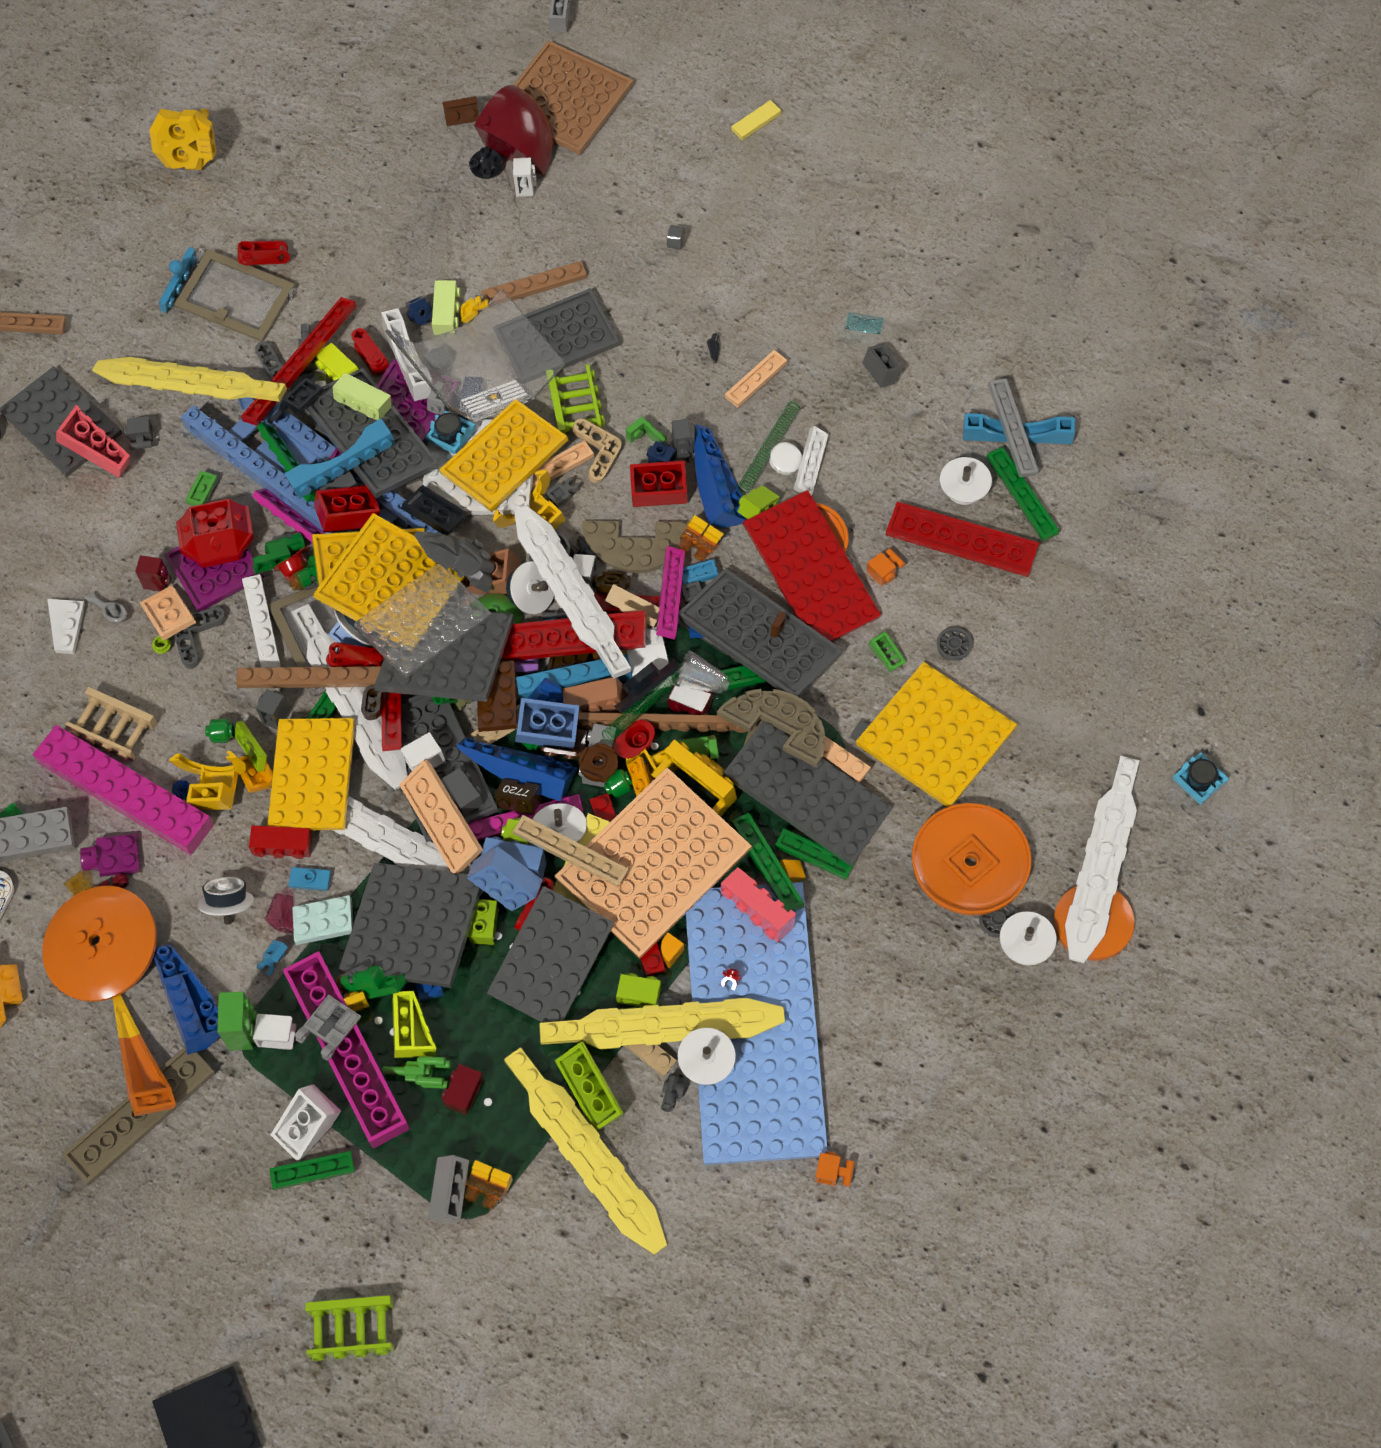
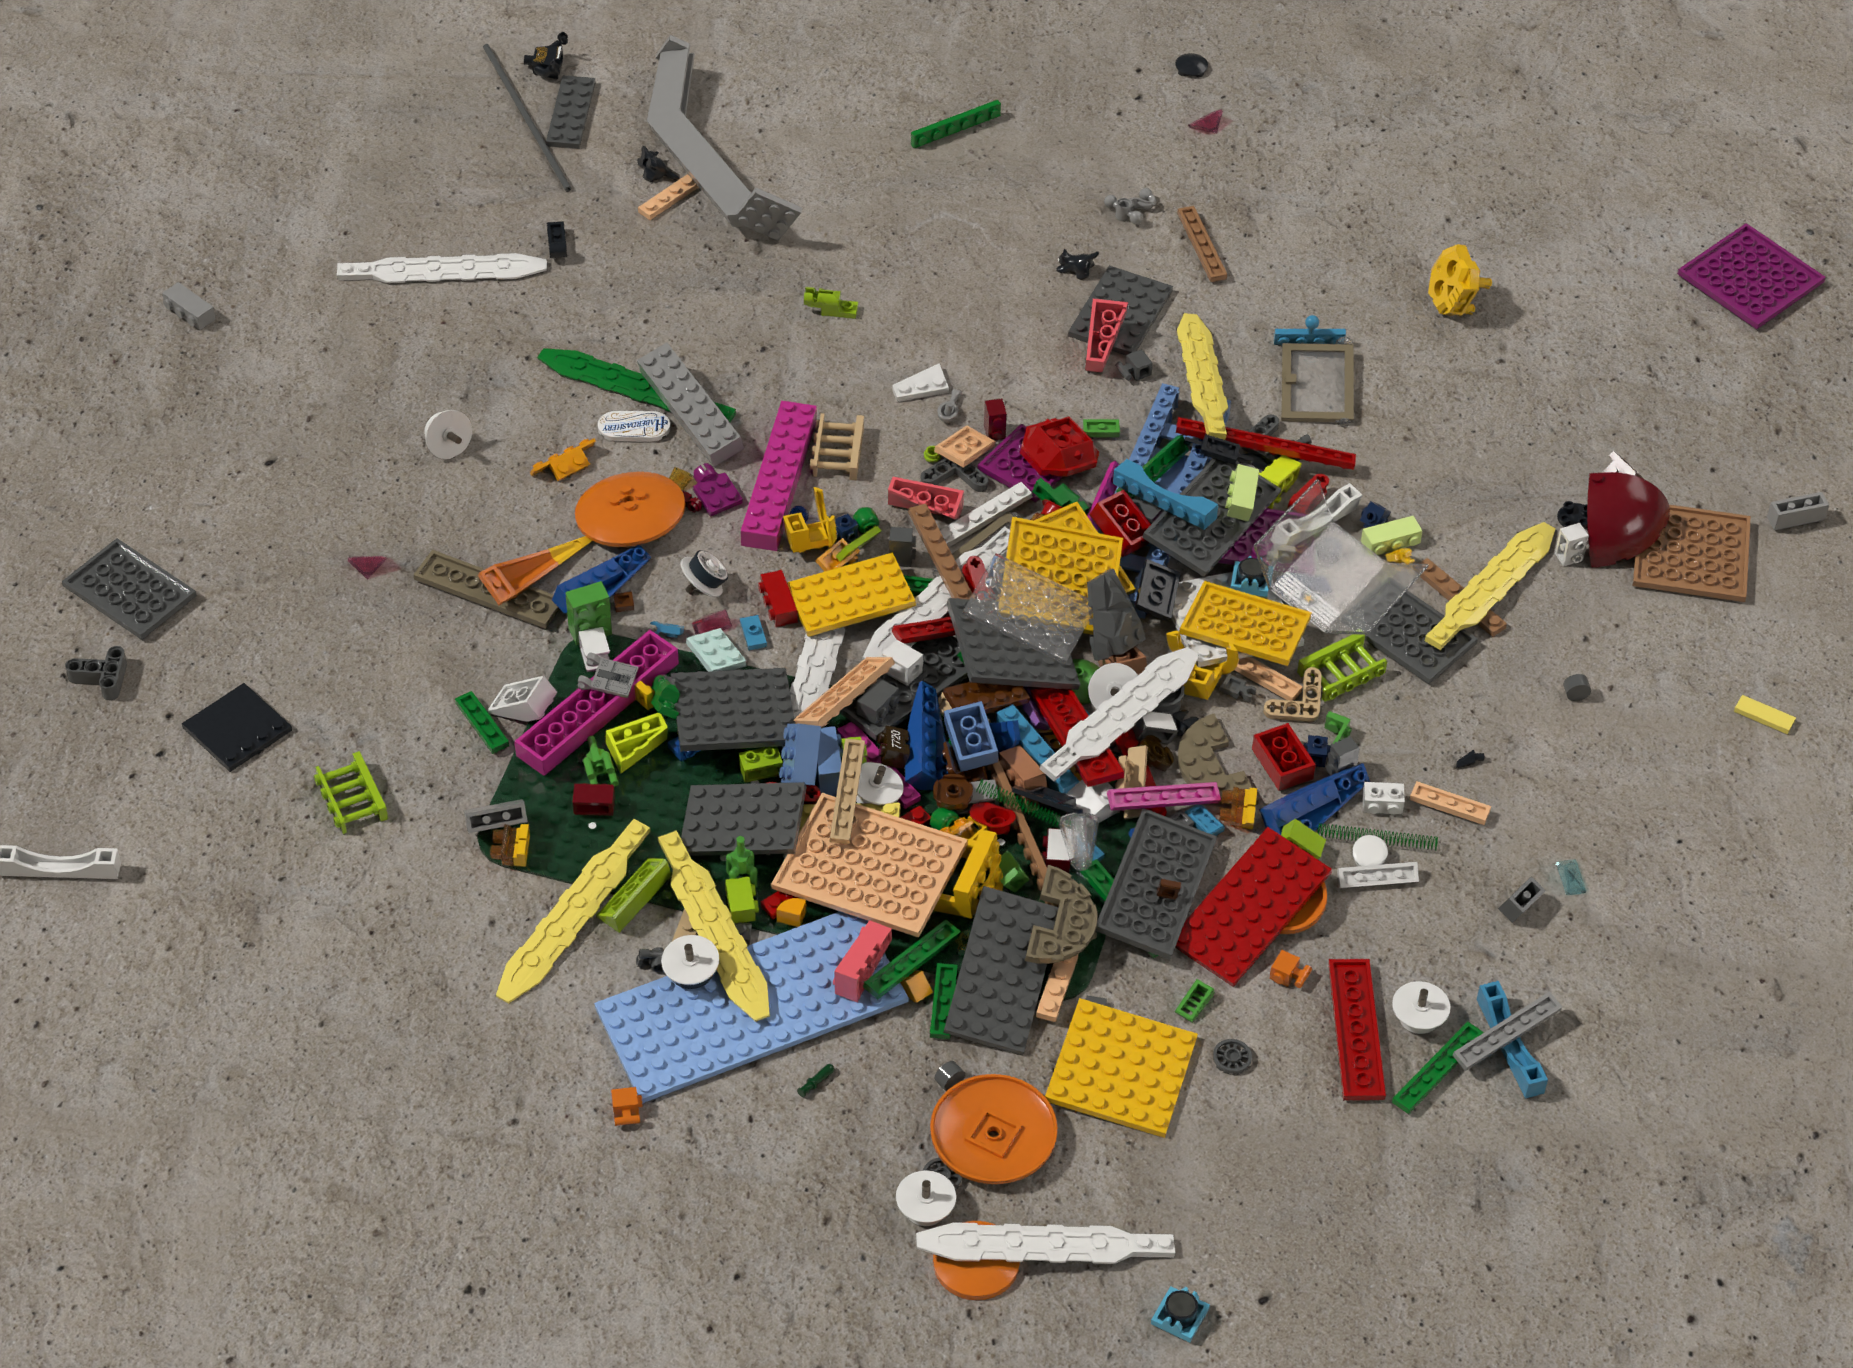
camera: 65 degrees right, 15 degrees down
(44, 1227) = (367, 564): none -> clear pink slope
(217, 985) = (623, 602): none -> reddish brown plate
(219, 752) = (846, 528): none -> dark blue brick
(230, 656) = (938, 499): none -> coral wedge
(262, 252) = (1372, 383): red piece -> none
(371, 707) = (934, 610): dark brown plate -> none
(535, 252) = (1492, 583): none -> light yellow plate
(605, 976) = (741, 862): none -> bright green plant
(731, 426) = (1383, 798): none -> white brick
(733, 975) = (783, 963): plate -> none
(861, 996) = (815, 1080): none -> dark green piece
(899, 876) = (949, 1075): none -> dark grey piece

